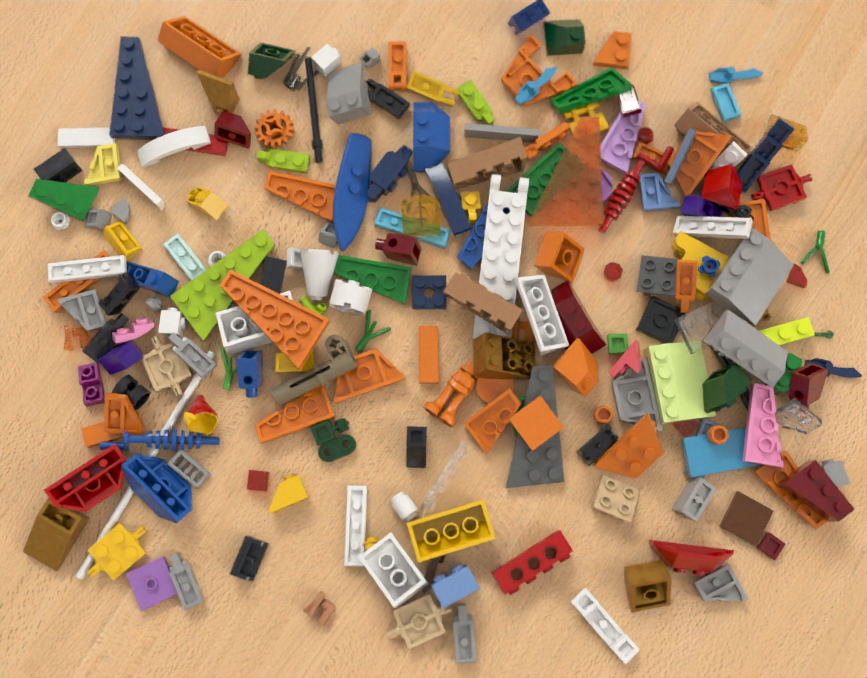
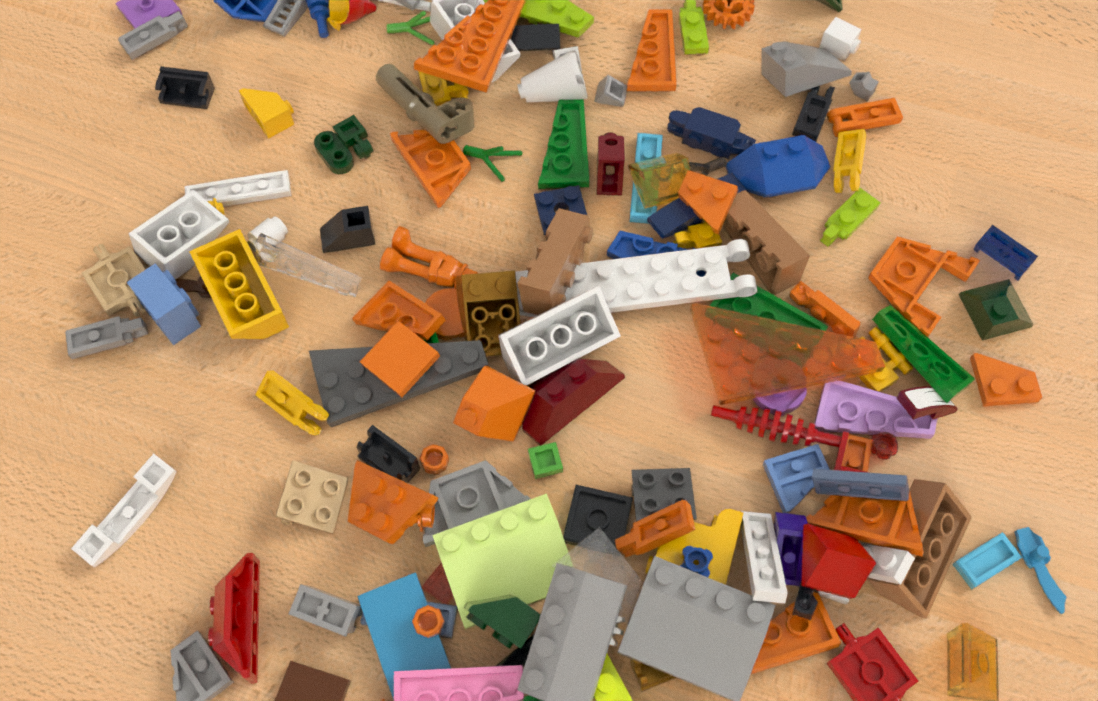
camera: 80 degrees right, 15 degrees down
(250, 371) = (409, 37): blue torso -> none
(258, 480) = (281, 81): clear red tile -> none
(292, 79) = (801, 10): clear smoke plant -> none
(300, 414) = (367, 102): orange wing -> none
(317, 143) = (727, 53): black bar -> none
(318, 308) = (507, 91): lime arm -> none
(325, 617) = (120, 181): nougat piece -> none
(350, 297) = (526, 118): white brick -> none
(351, 189) = (655, 97): blue piece -> none
(428, 355) = (476, 227): orange tile -> none
(452, 189) = (708, 198): none -> orange wing
(500, 132) = (815, 248): light grey tile -> none
(531, 89) = (893, 272): dark azure piece -> none
(545, 504) = (290, 402): none -> yellow hinge
(559, 256) = (656, 359): orange slope -> none
(562, 553) = (186, 367): red brick -> none
(612, 272) = (654, 435): clear red tile -> none
(630, 358) = (520, 471): coral slope -> none
(647, 585) = (188, 561): pearl gold slope -> none
(763, 153) = (917, 622): dark blue slope -> none

